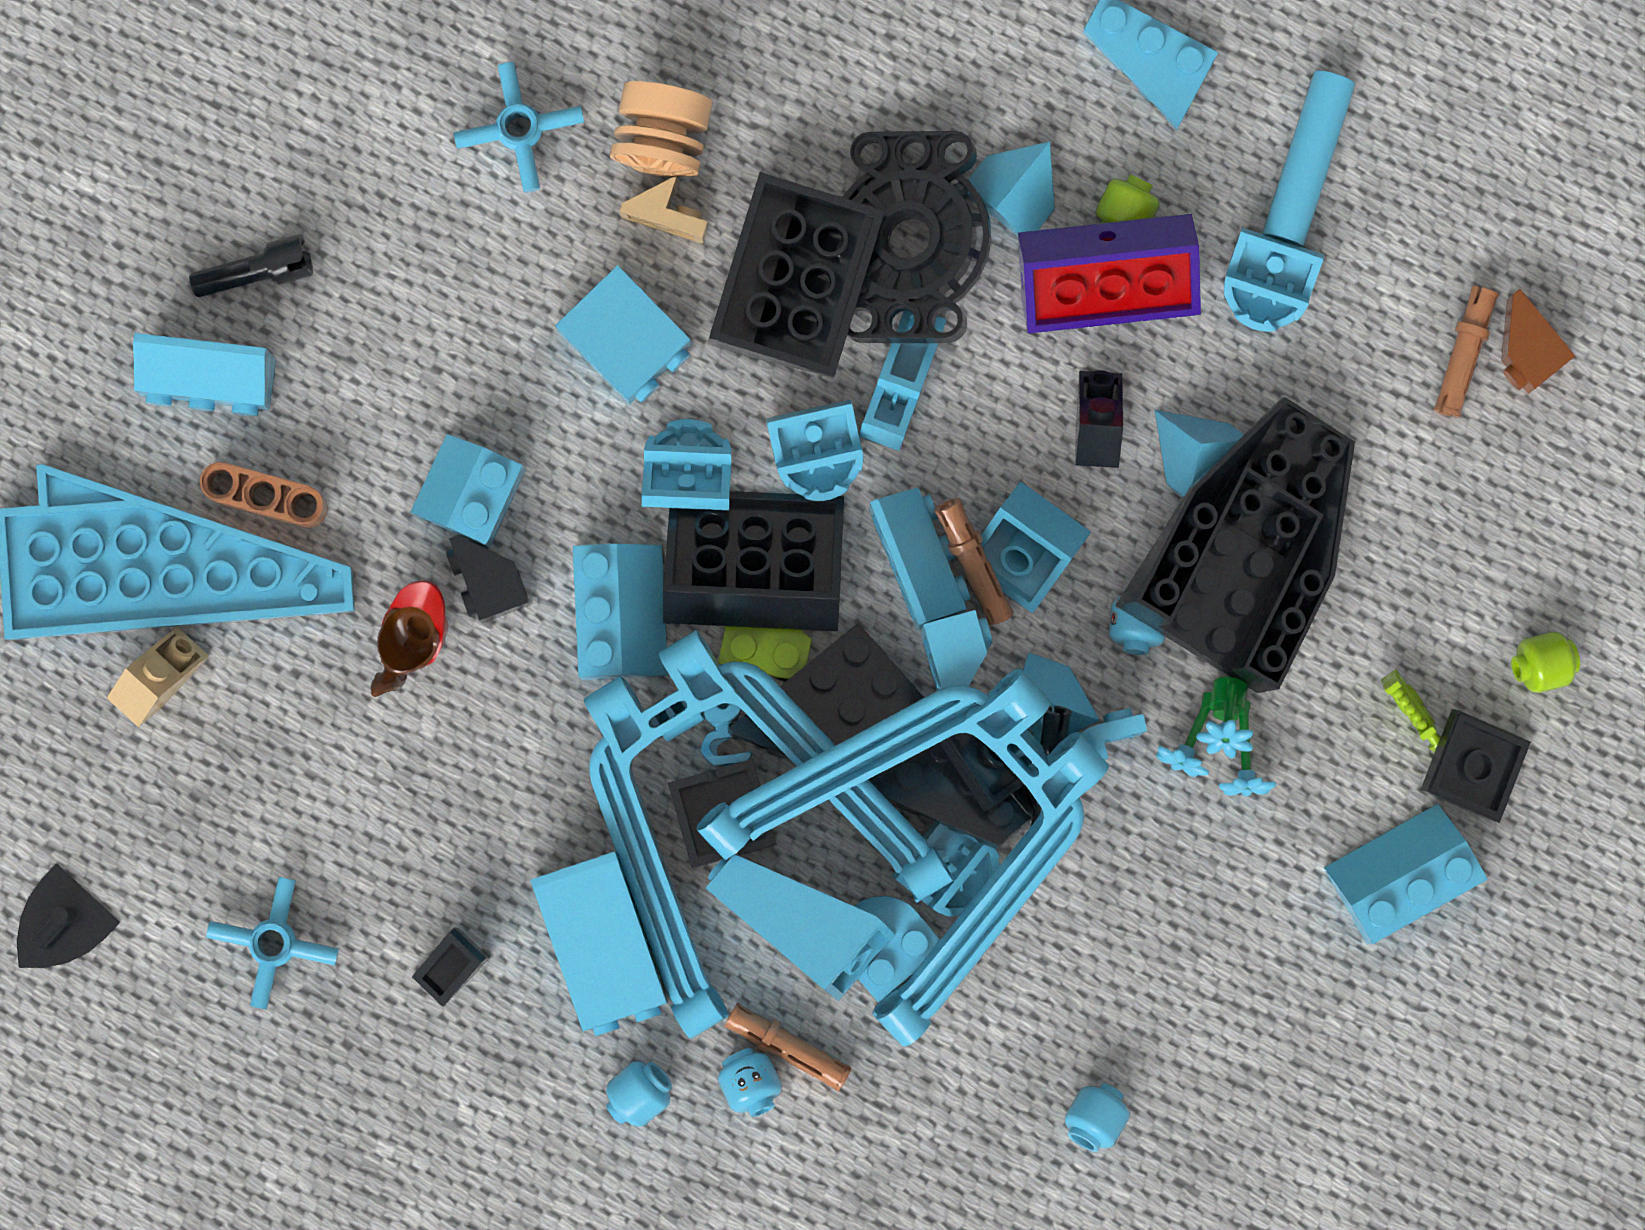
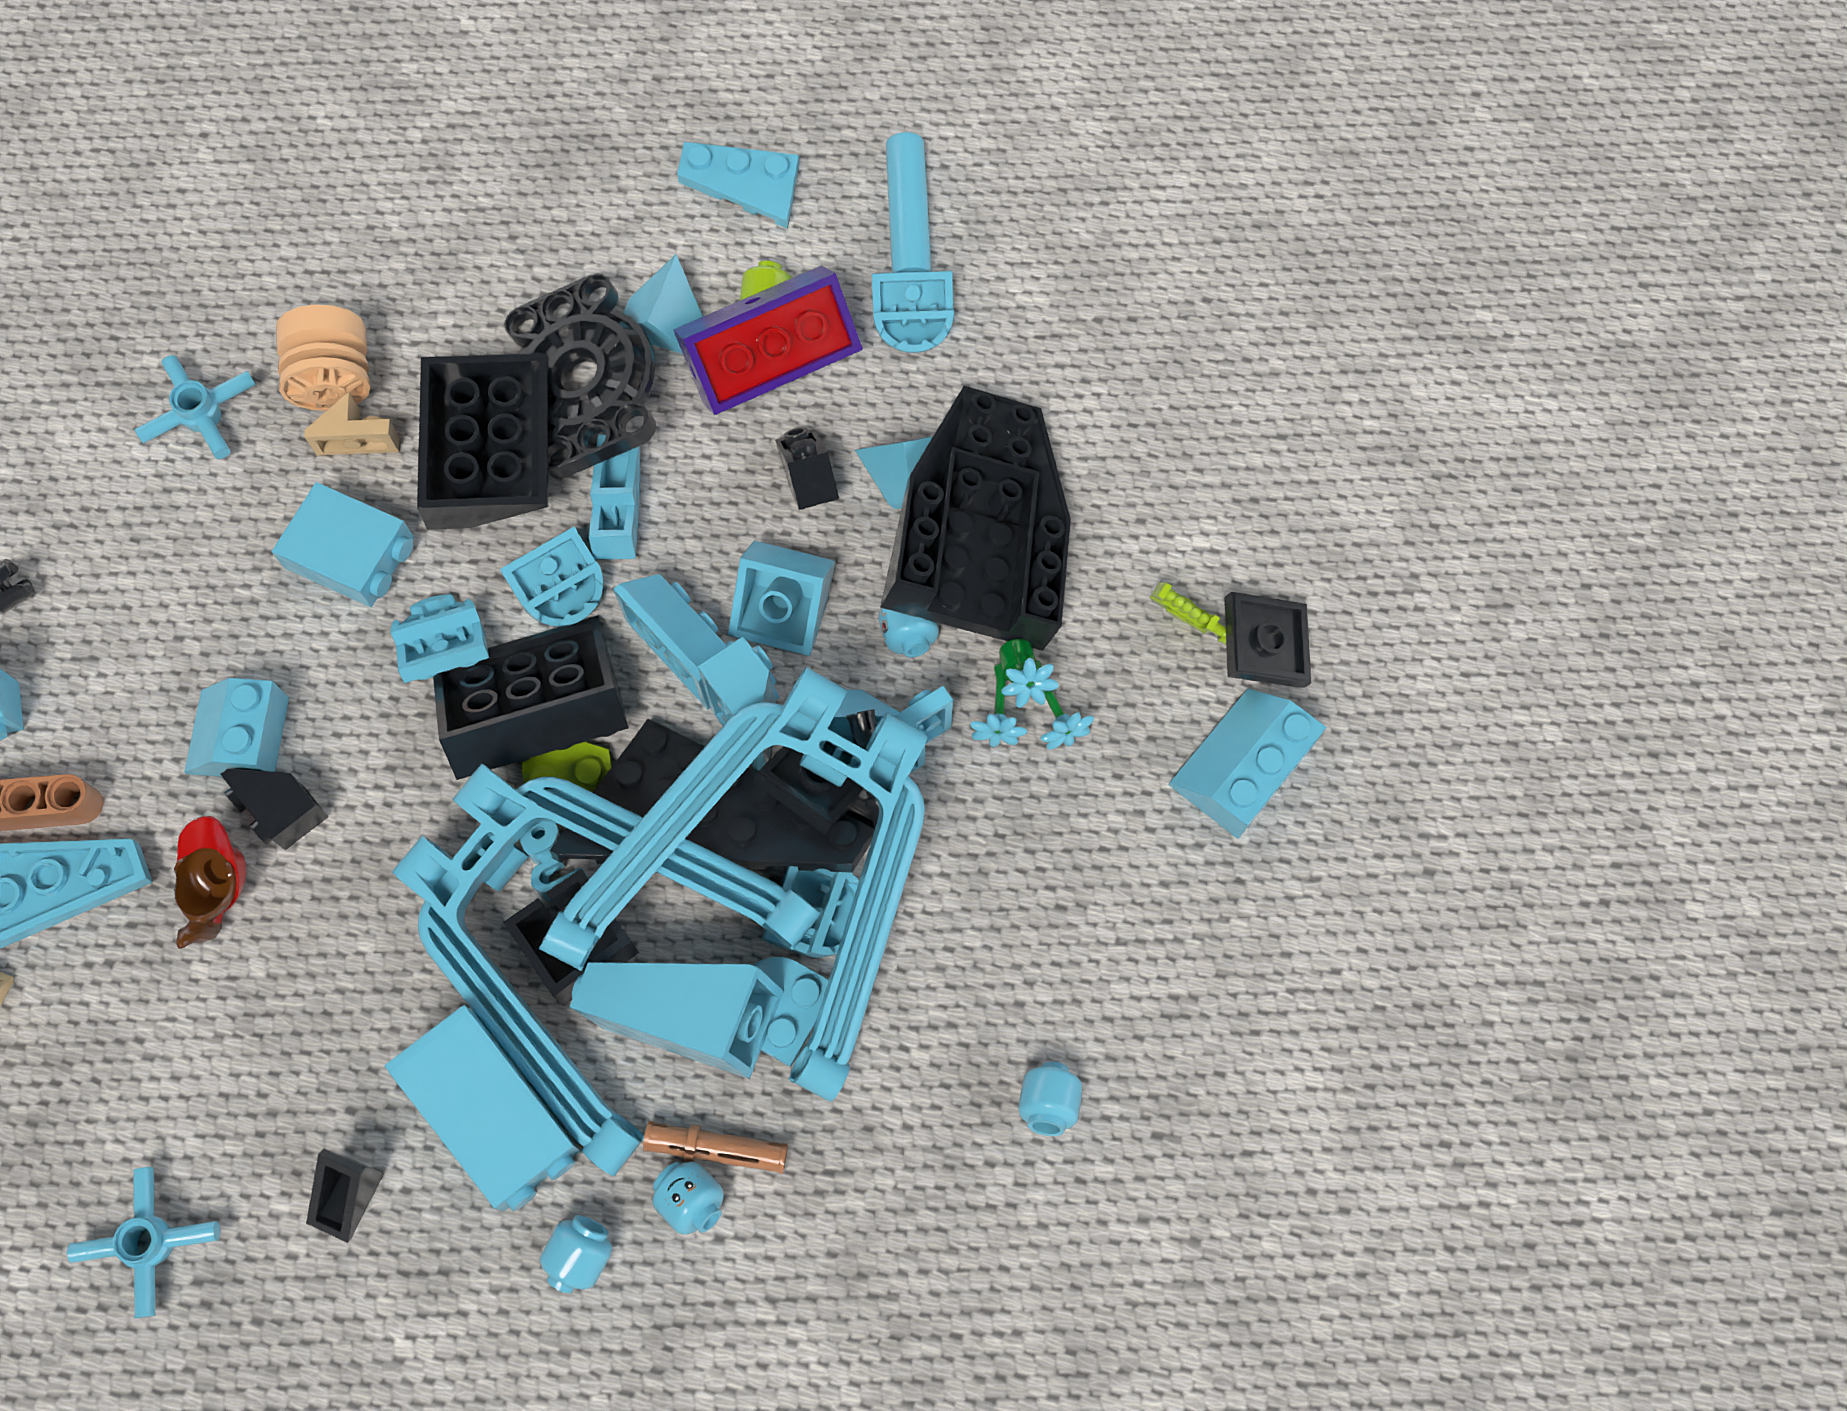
camera: 20 degrees left, 15 degrees down
(619, 610) = (408, 785): medium azure slope -> none
(967, 546) = (731, 616): nougat pin -> none
(1470, 337) = (1104, 296): nougat pin -> none
(1530, 345) = (1159, 283): dark orange slope -> none
(1545, 662) = (1289, 530): lime head -> none

